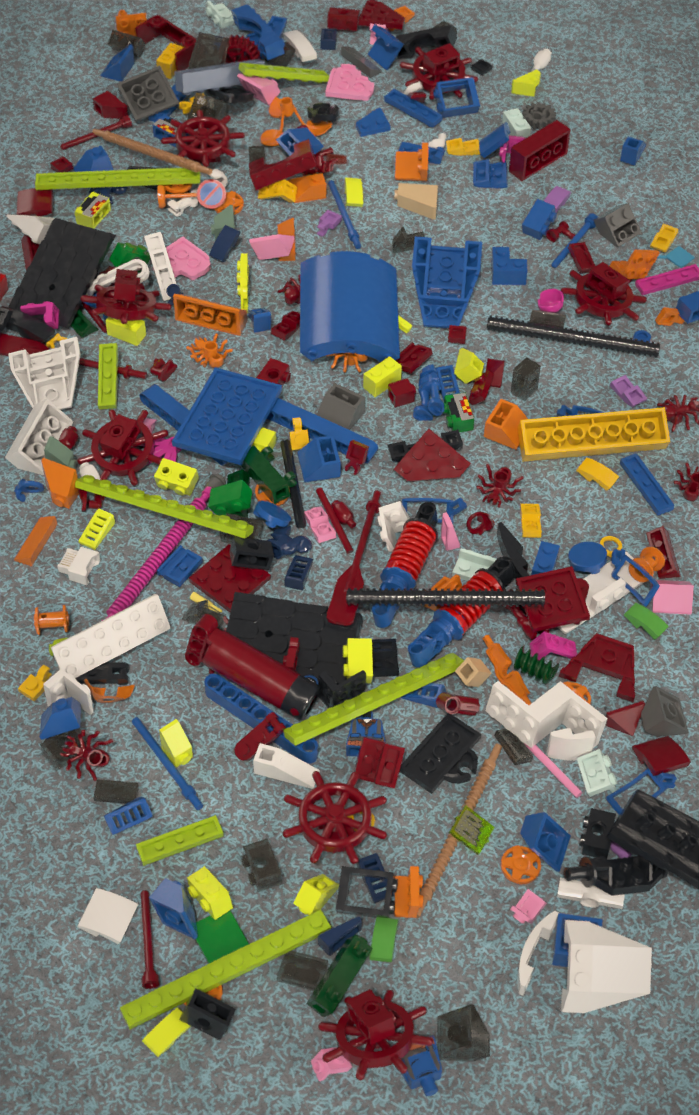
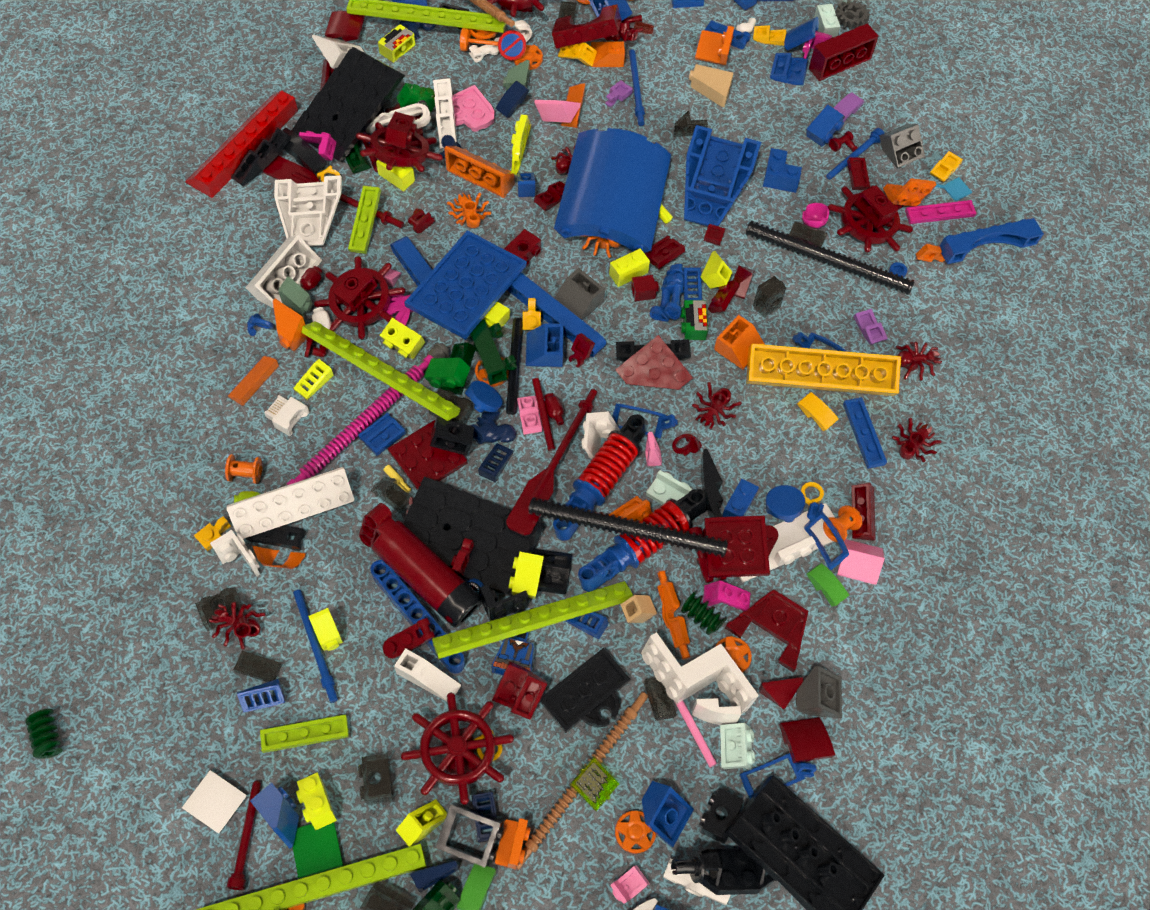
camera: 10 degrees right, 10 degrees up
(60, 717) = (222, 580): blue slope -> none
(353, 192) = (650, 65): neon yellow slope -> none
(458, 704) = (615, 641): dark red piece -> none
(530, 520) = (738, 450): yellow slope -> none
(632, 150) = (936, 67): blue slope -> none

